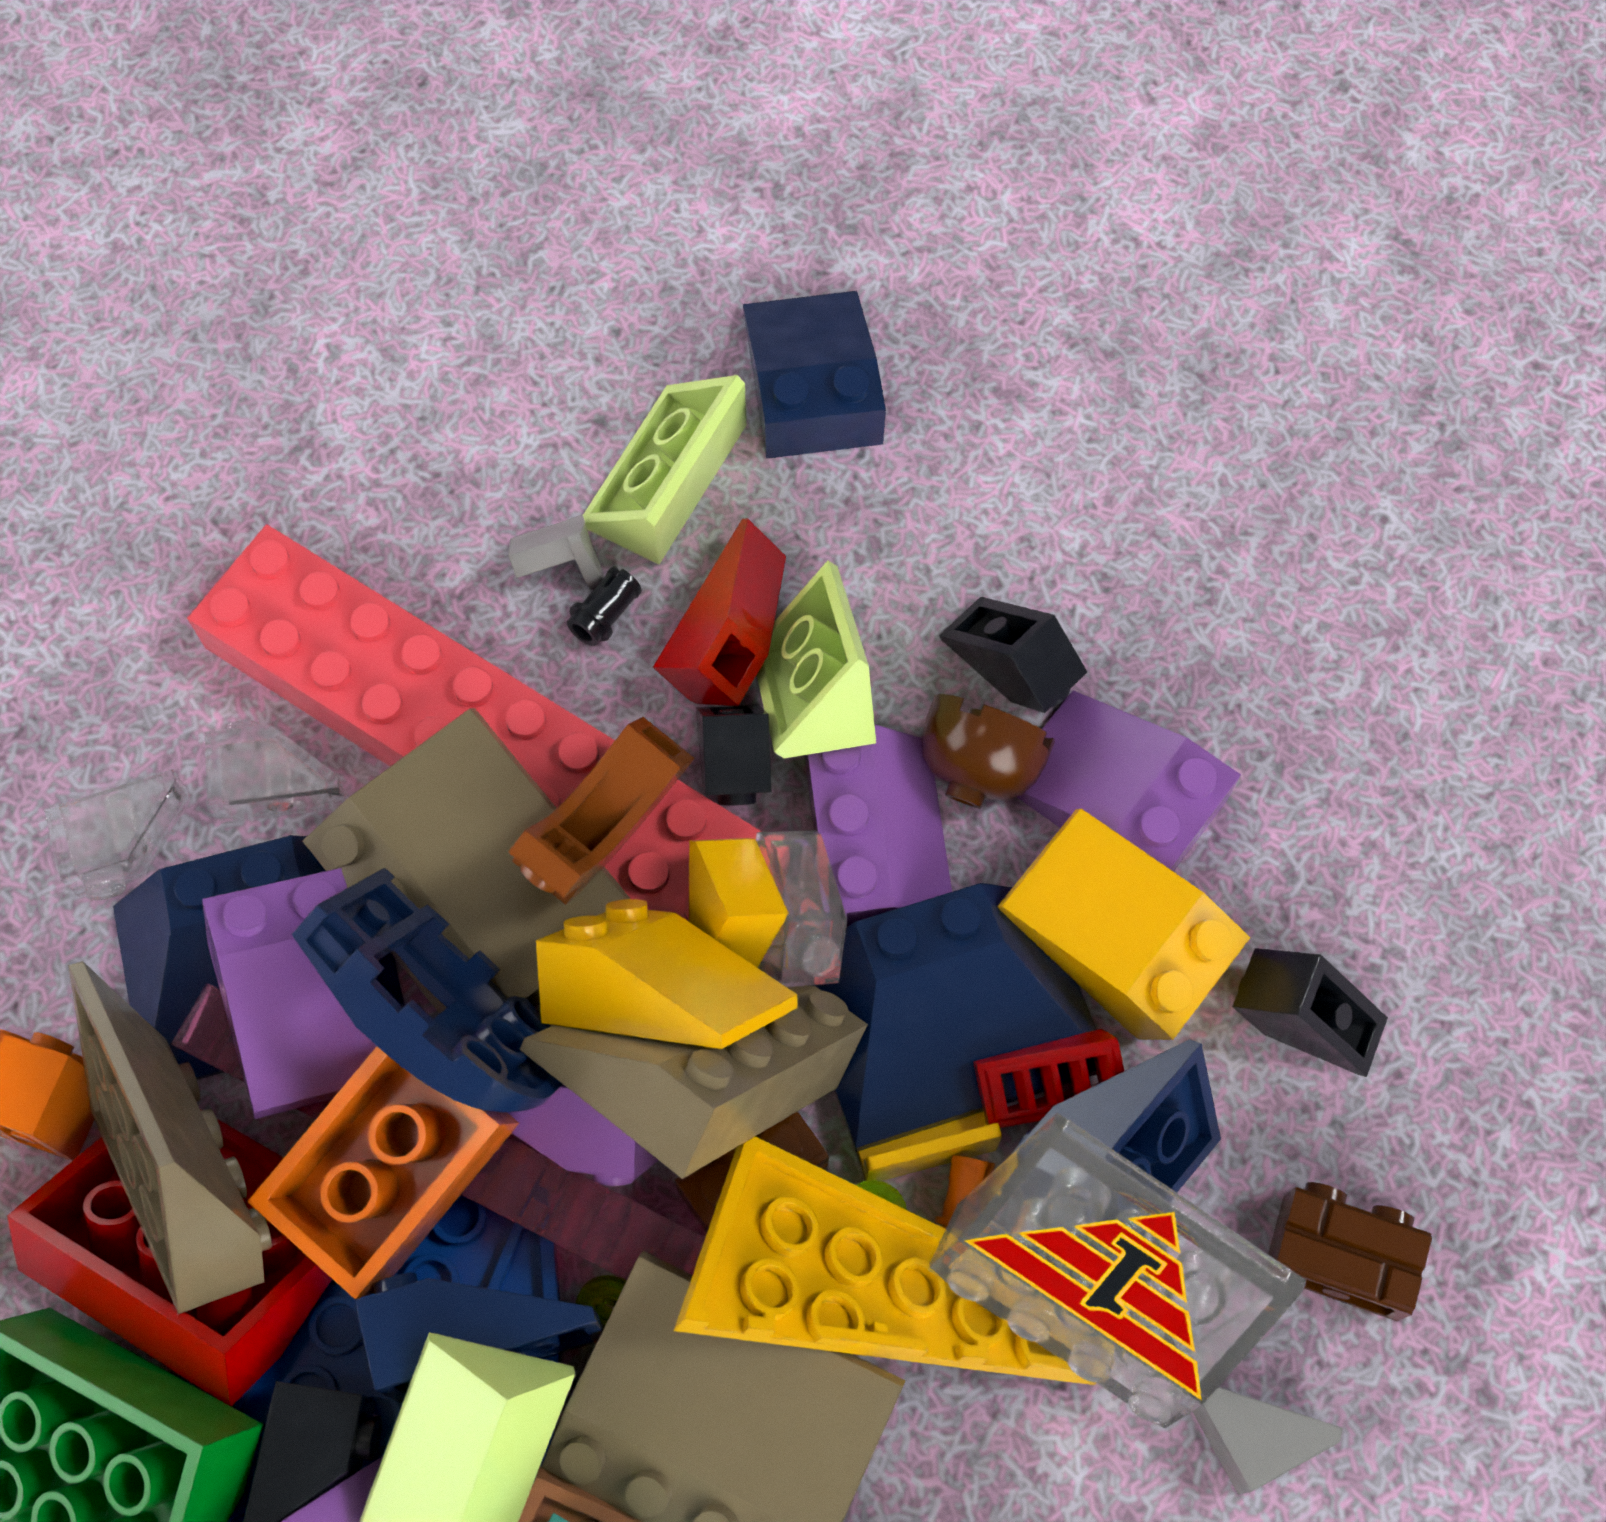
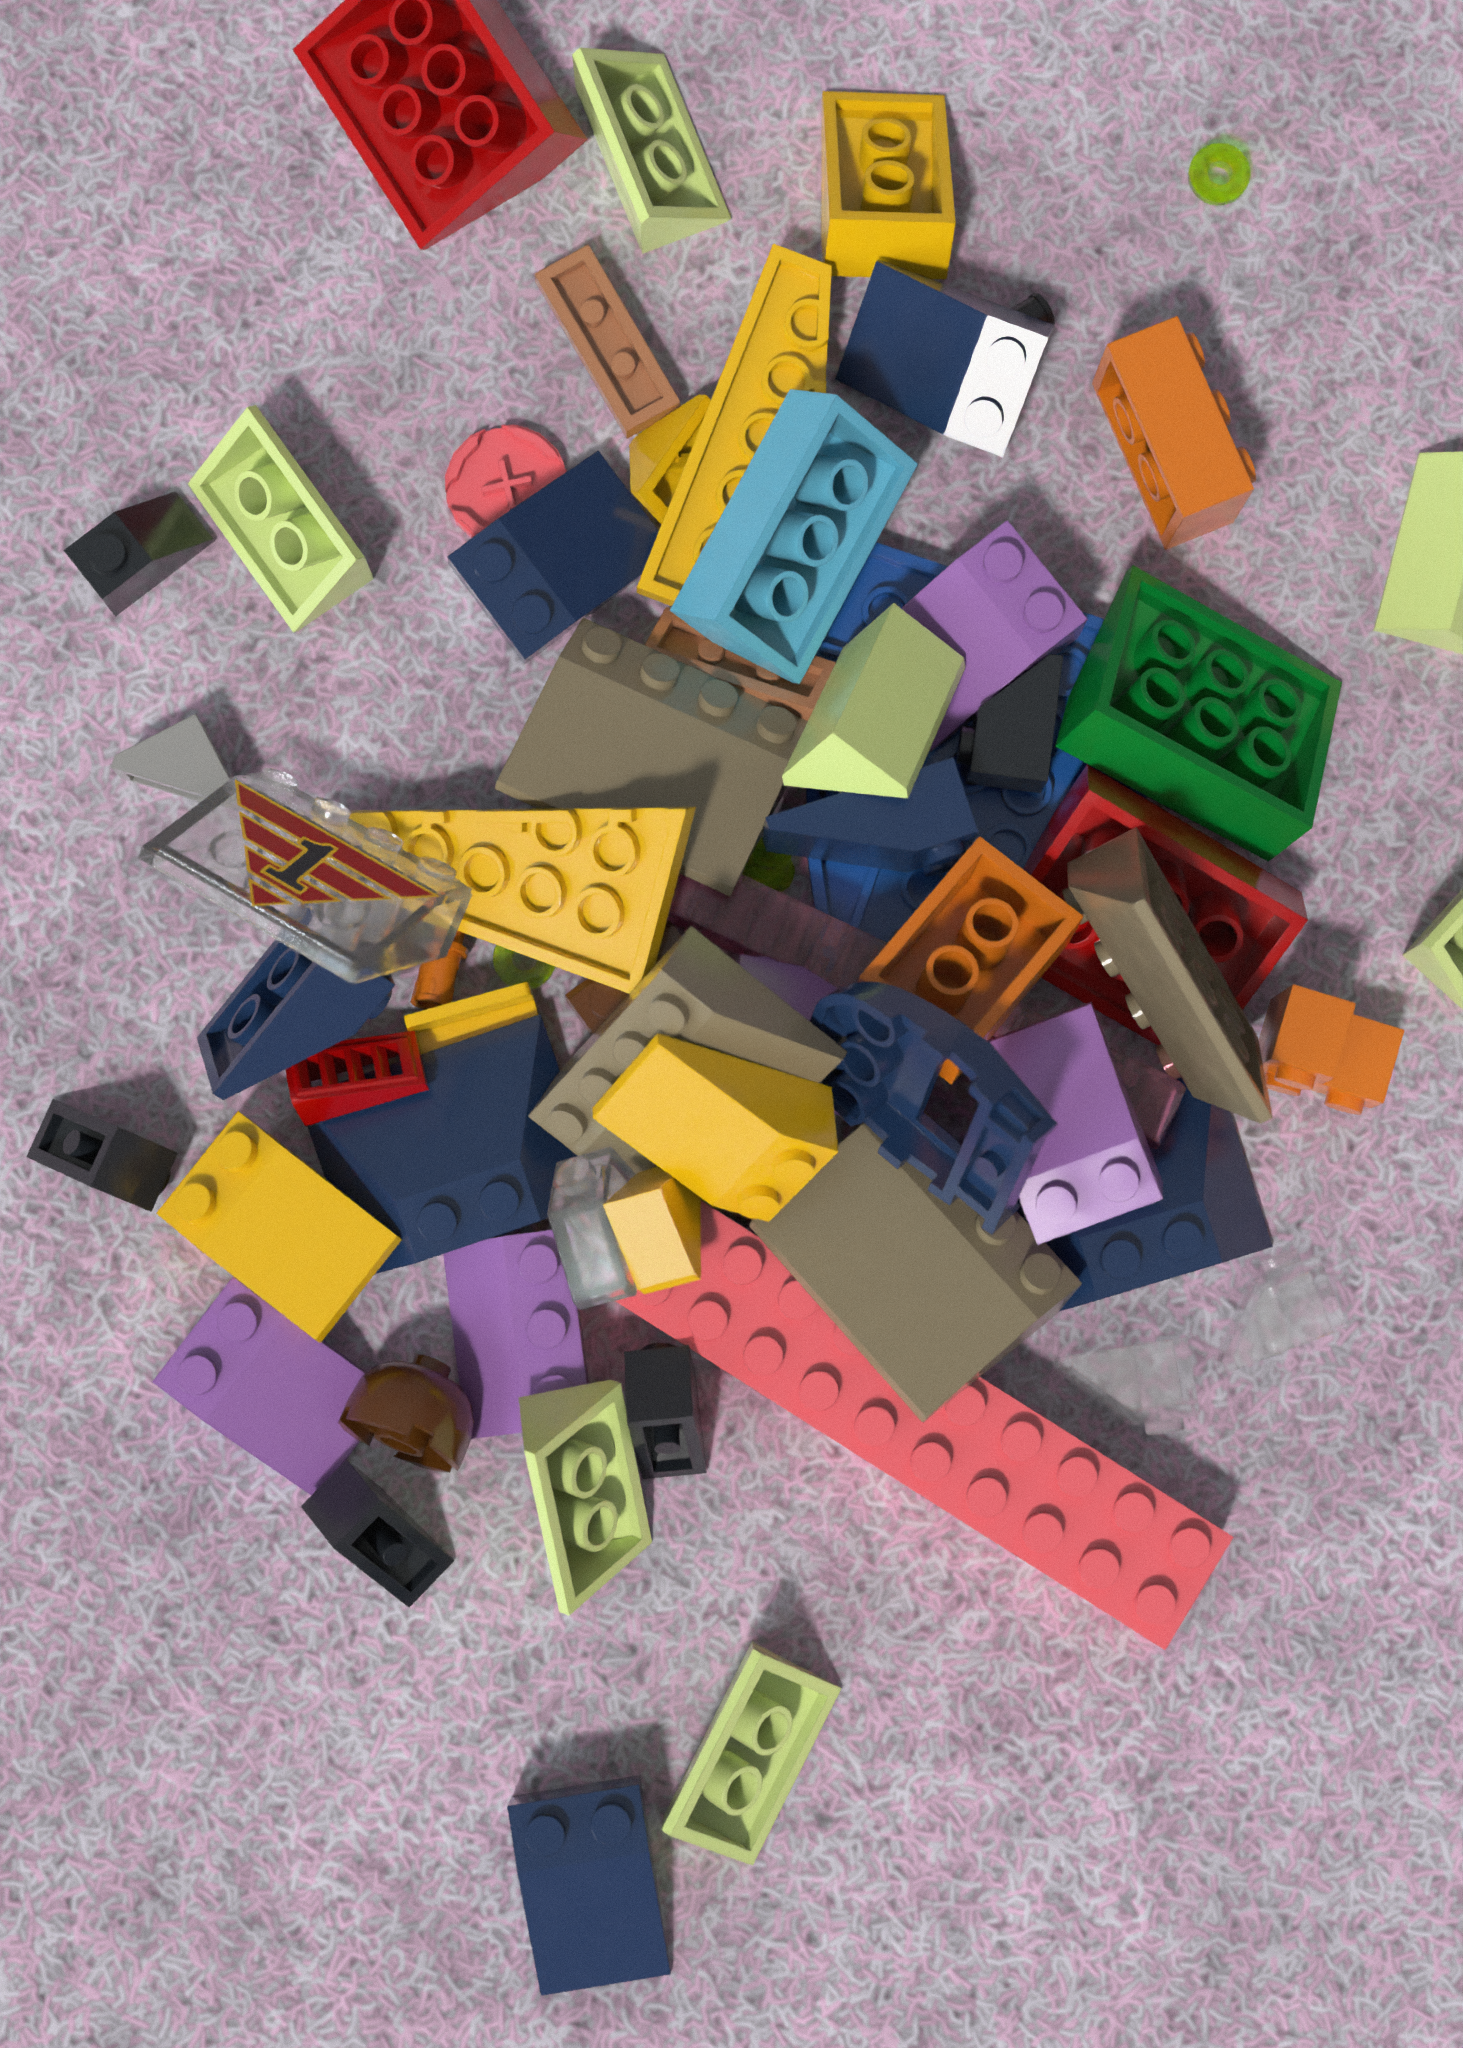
camera: 175 degrees right, 15 degrees up
(555, 546) = (861, 1645): light grey tile -> none
(602, 812) = (789, 1301): dark orange arch -> none
(605, 604) = (806, 1581): black pin -> none
(728, 622) = (671, 1560): red slope -> none
(1351, 1253) = (88, 927): reddish brown brick -> none

